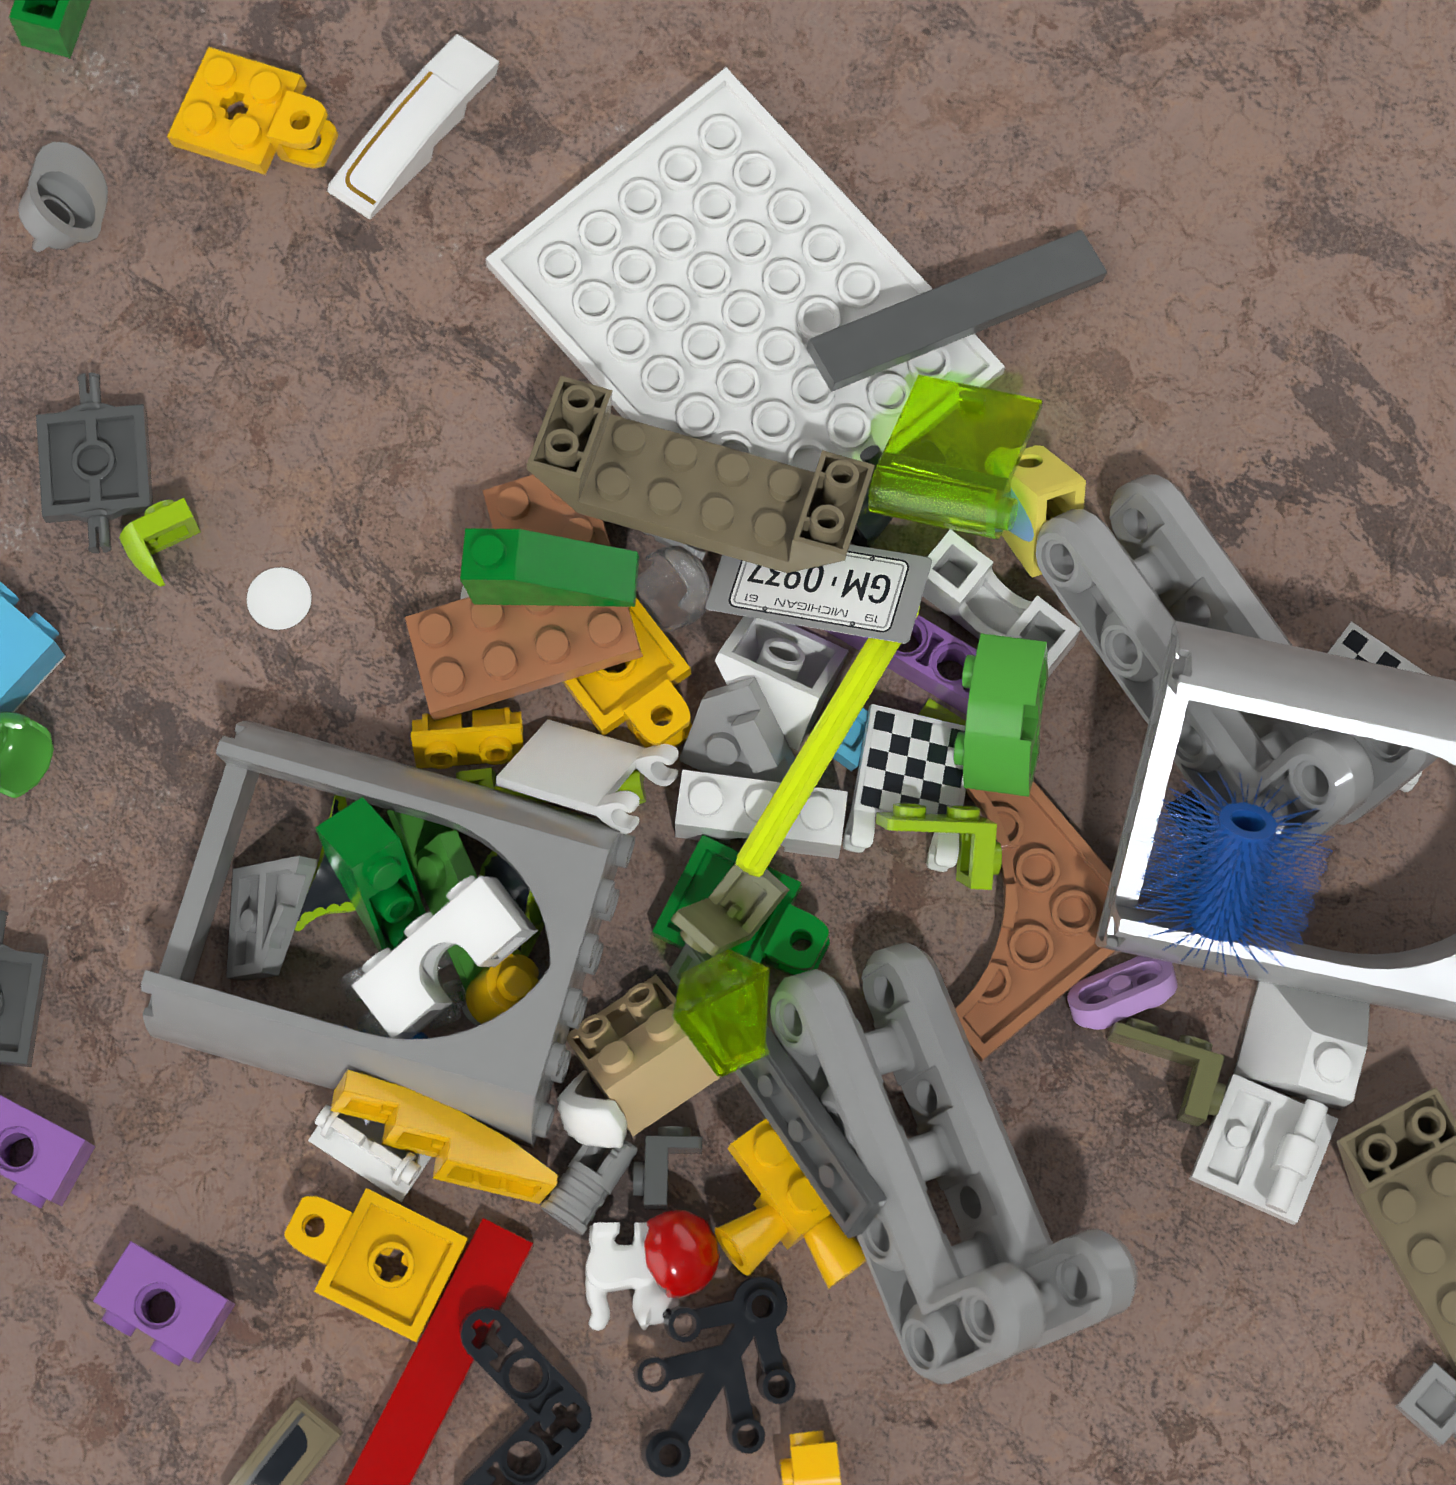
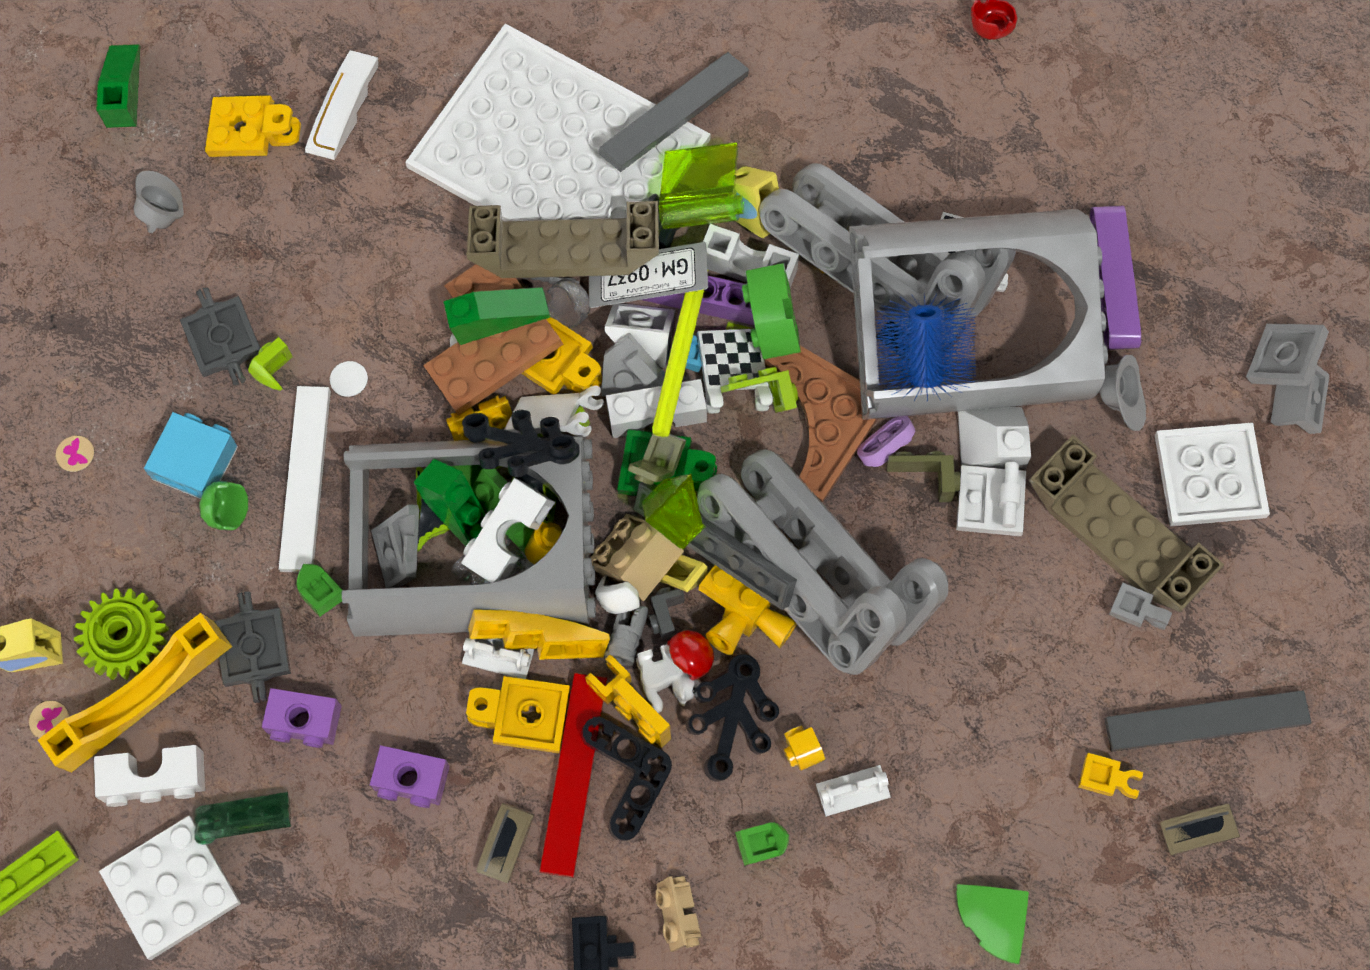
camera: 15 degrees left, 5 degrees down
(117, 943) = (318, 589): none -> bright green plate
(154, 748) = (304, 478): none -> white tile
(553, 1305) = (631, 703): none -> yellow plate
(567, 853) = (559, 449): none -> black plant
(714, 1115) = (685, 574): none -> light yellow slope

